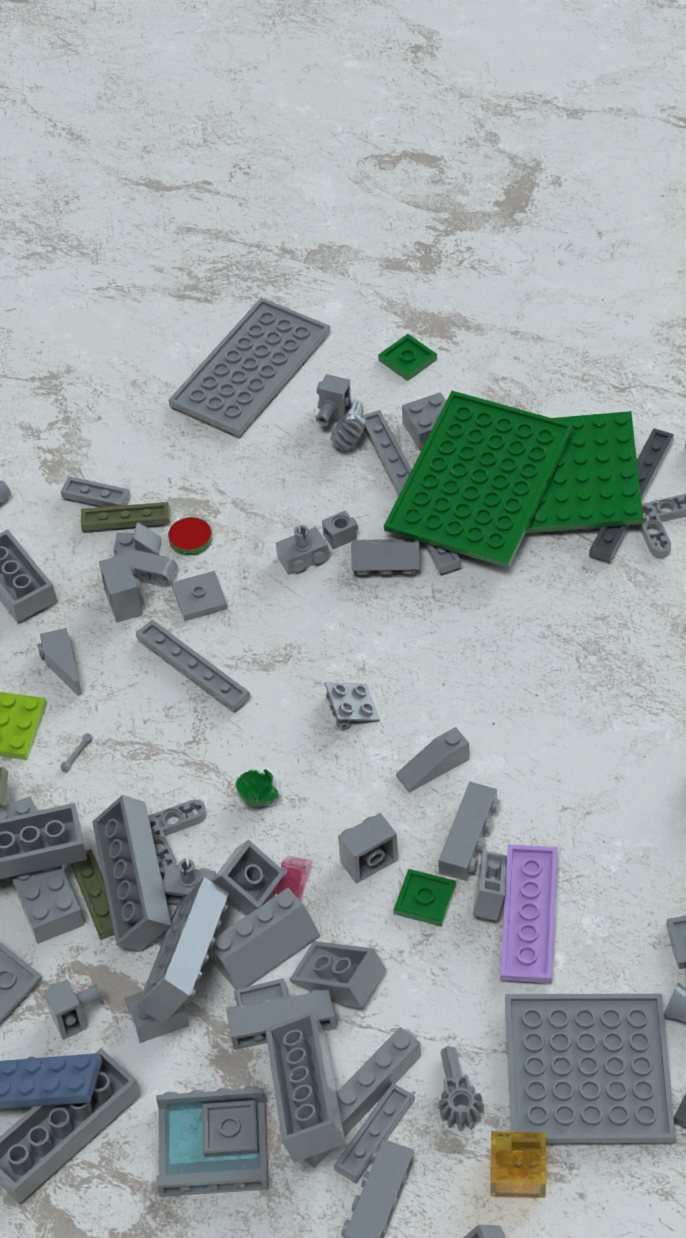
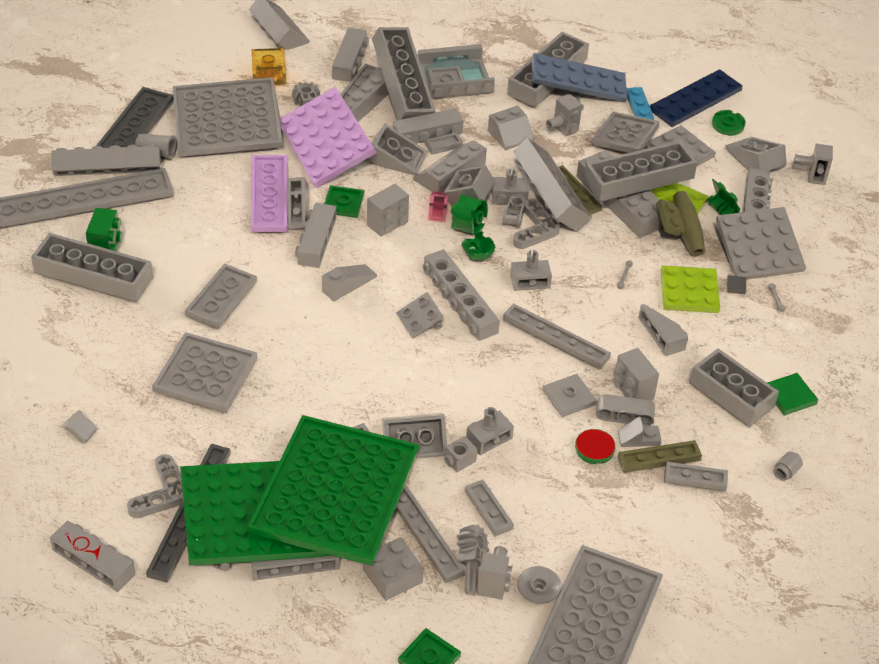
camera: 165 degrees right, 5 degrees down
(183, 951) = (498, 125): light grey brick -> none
(194, 847) = (515, 210): none -> light grey piece
(199, 747) = (531, 273): none -> light grey brick
(260, 829) = (469, 214): none -> green brick
(290, 400) = (540, 578): none -> light grey dish
(296, 728) = (461, 295): none -> light grey brick
(322, 477) = (489, 507): none -> light grey plate
(439, 997) = (326, 137): none -> lavender plate
(598, 749) = (221, 296): none -> light grey plate
(617, 647) = (205, 372): none -> light grey plate

